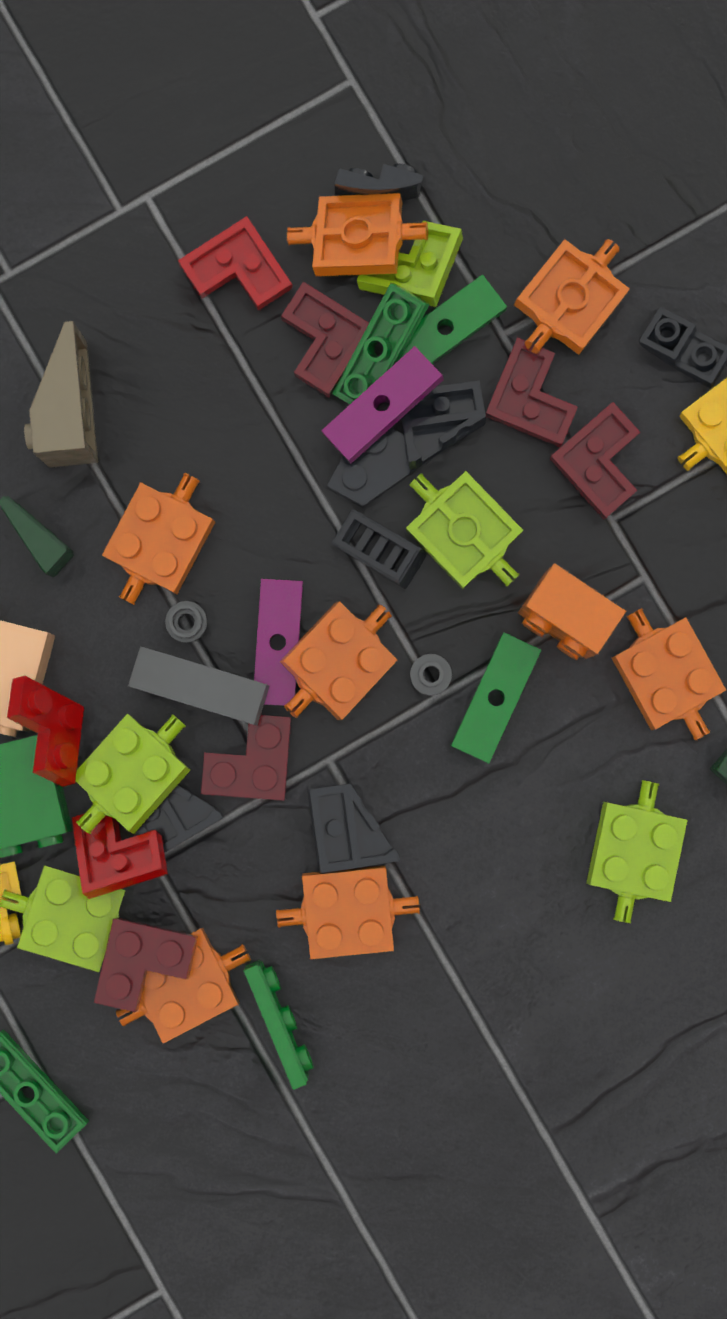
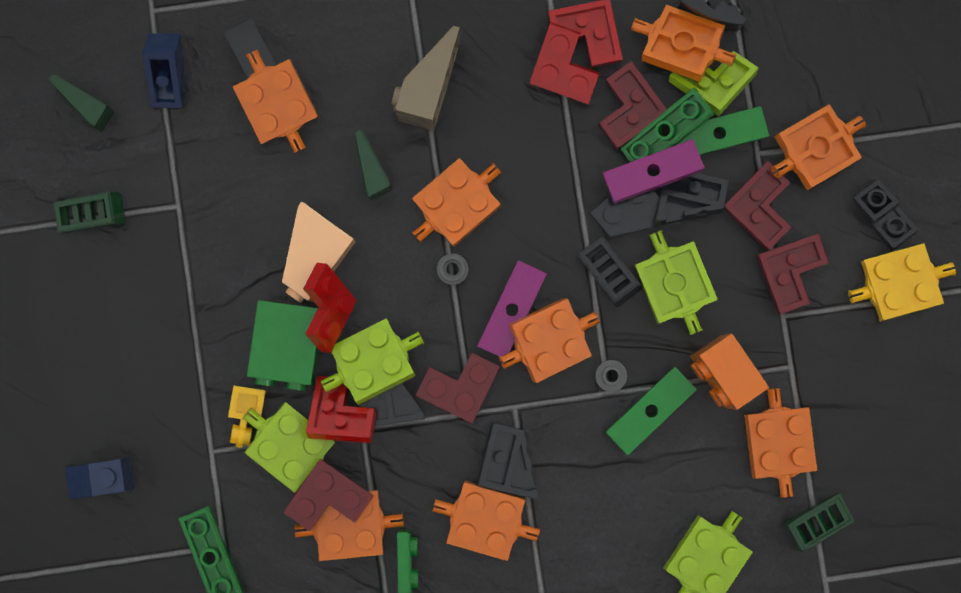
camera: 20 degrees right, 0 degrees up
(198, 685) = (444, 318): dark grey slope -> none
(217, 331) = (556, 72): none -> red plate

